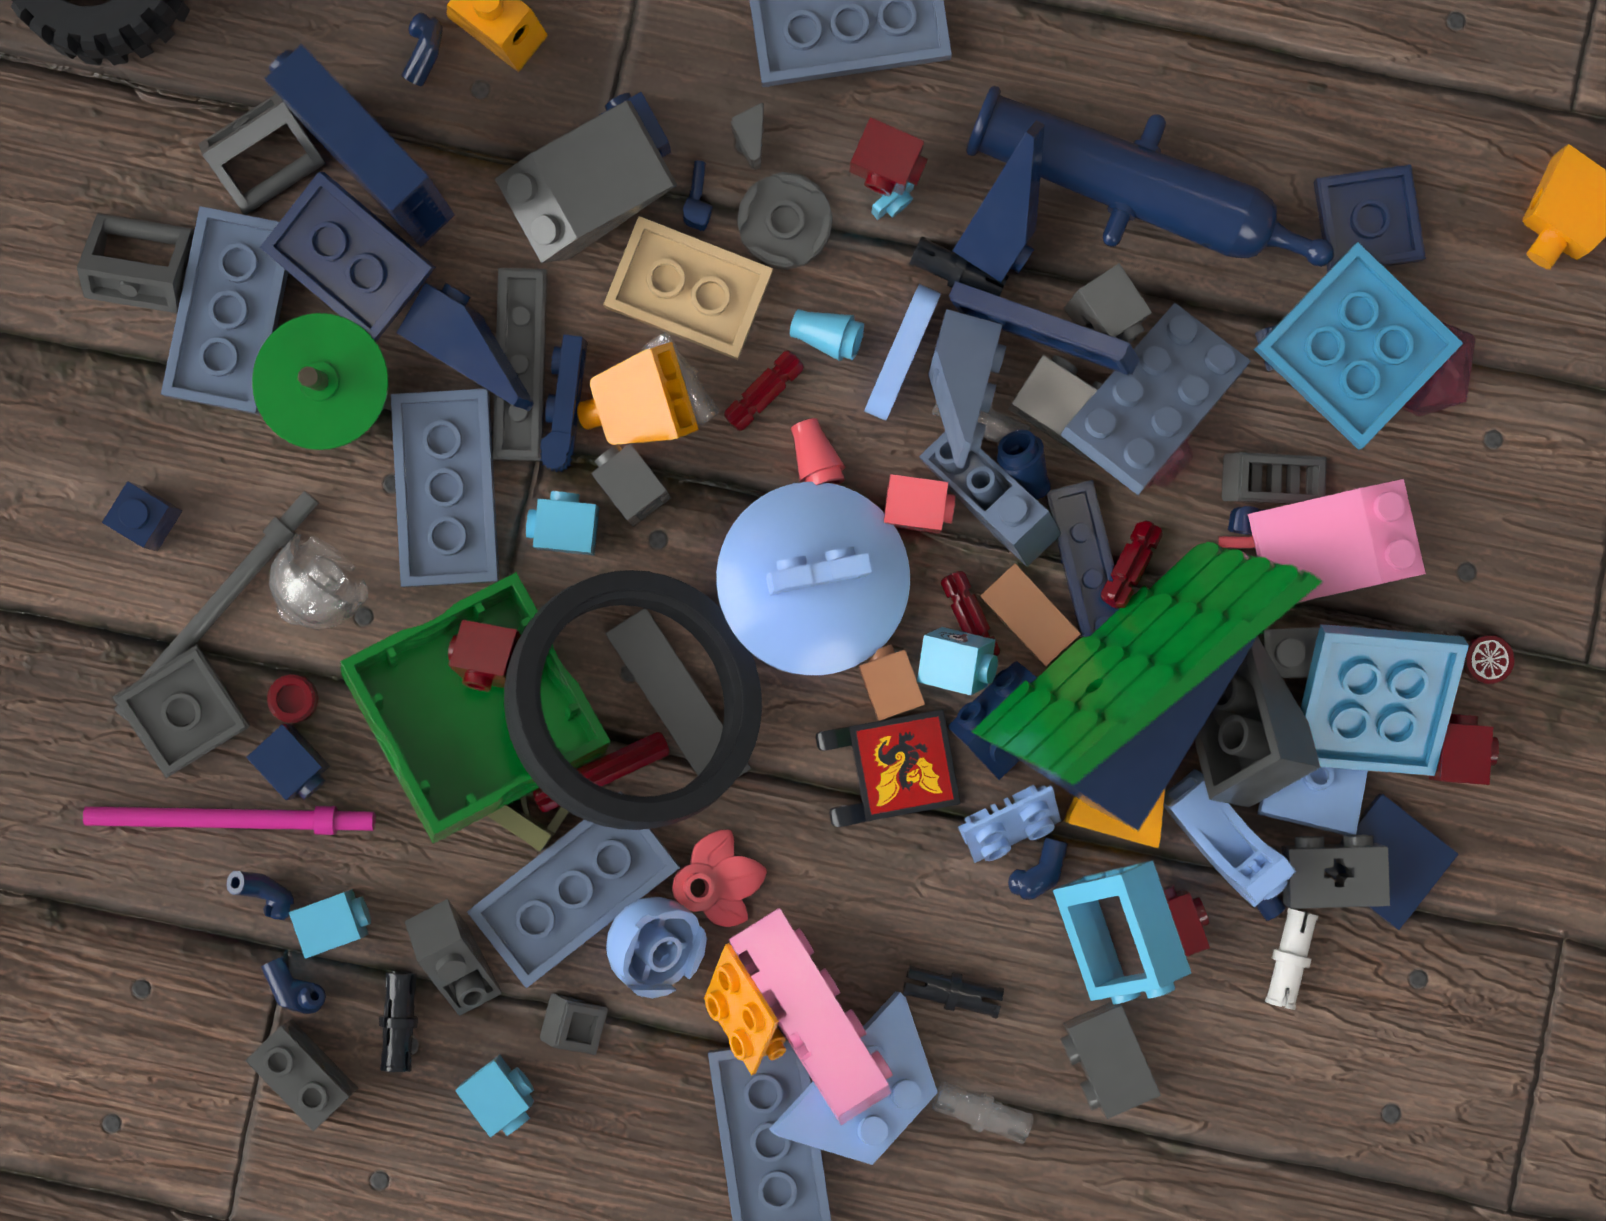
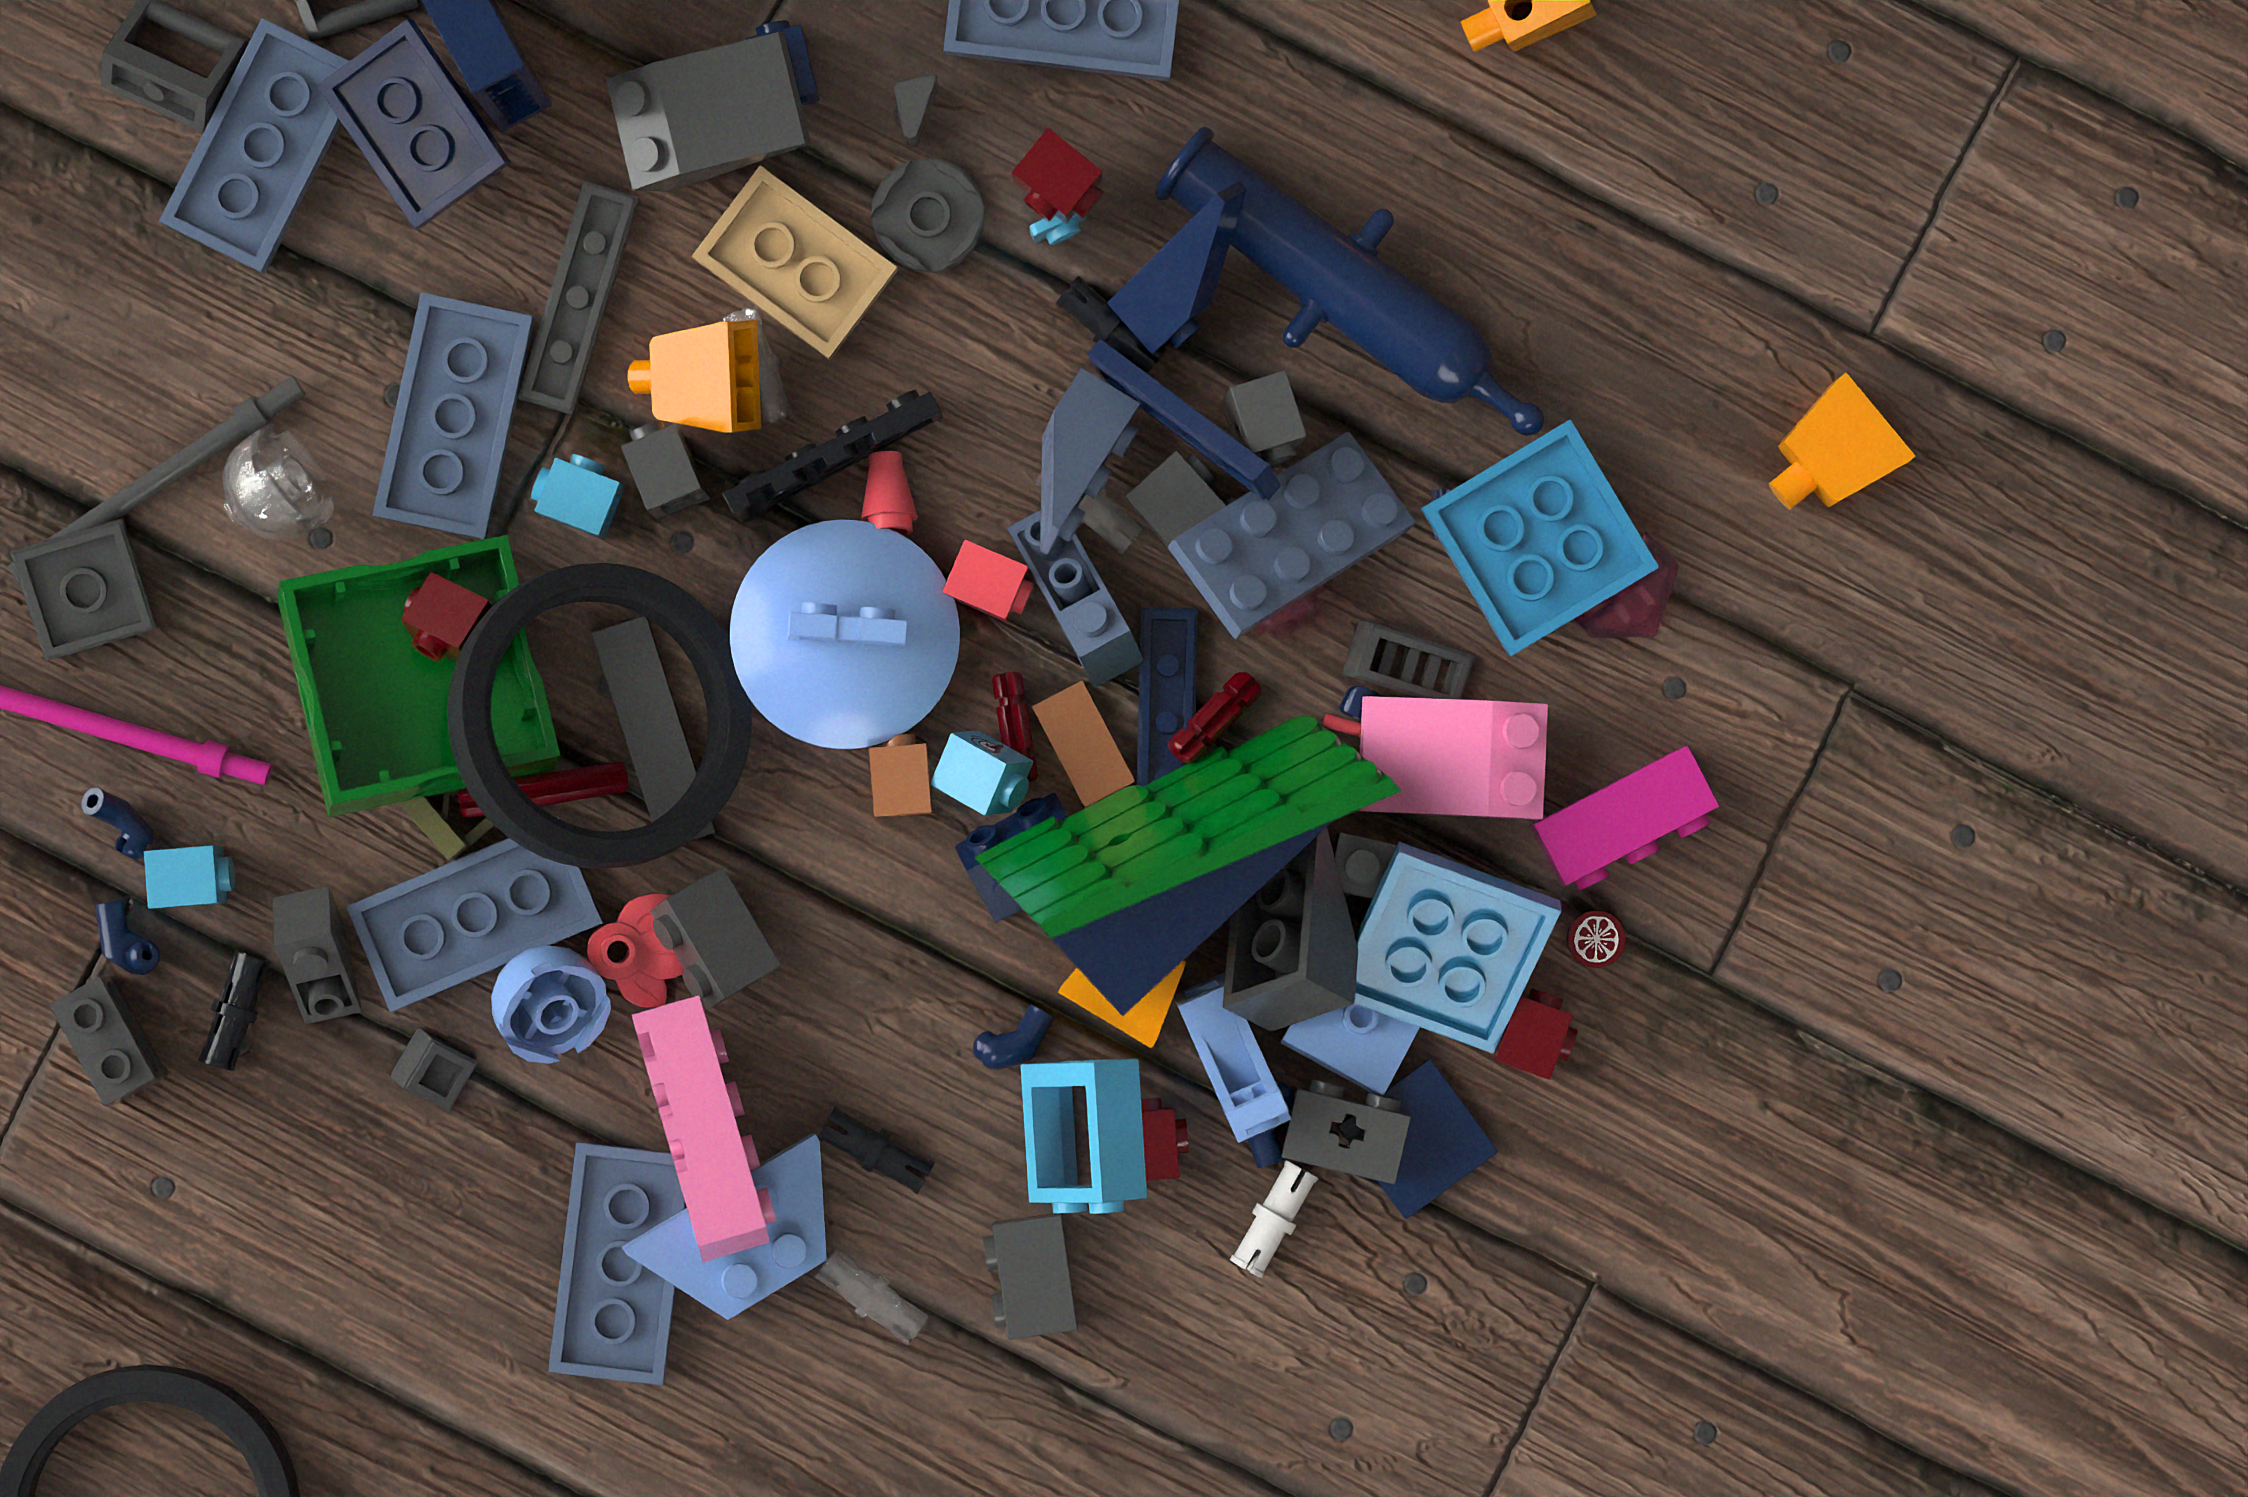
camera: 20 degrees right, 0 degrees up
(142, 516) = (99, 355): dark blue brick -> none
(289, 763) = (191, 682): dark blue brick -> none
(292, 698) = (214, 610): dark red tile -> none
(320, 381) = (343, 257): green piece -> none
(462, 339) = (520, 254): dark blue slope -> none
(497, 1097) = (324, 1127): medium azure brick -> none
(561, 408) = (634, 315): dark blue hinge -> none
(695, 211) = (828, 178): dark blue hand -> none
(743, 1012) = (628, 1106): light orange hinge -> none
(749, 447) = (817, 463): none -> black wing
(763, 390) = (849, 404): dark red axle -> none
(775, 856) = (713, 938): none -> dark grey brick
(829, 332) = (943, 359): medium azure cone -> none
(899, 765) = (886, 876): flag -> none
(902, 352) = (1019, 403): light blue beam -> none
(1024, 460) = (1122, 566): dark blue cone -> none
(1029, 817) = (972, 980): light blue hinge -> none
(1374, 210) = (1606, 392): dark blue tile -> none
(1487, 555) = (1625, 819): none -> dark pink brick

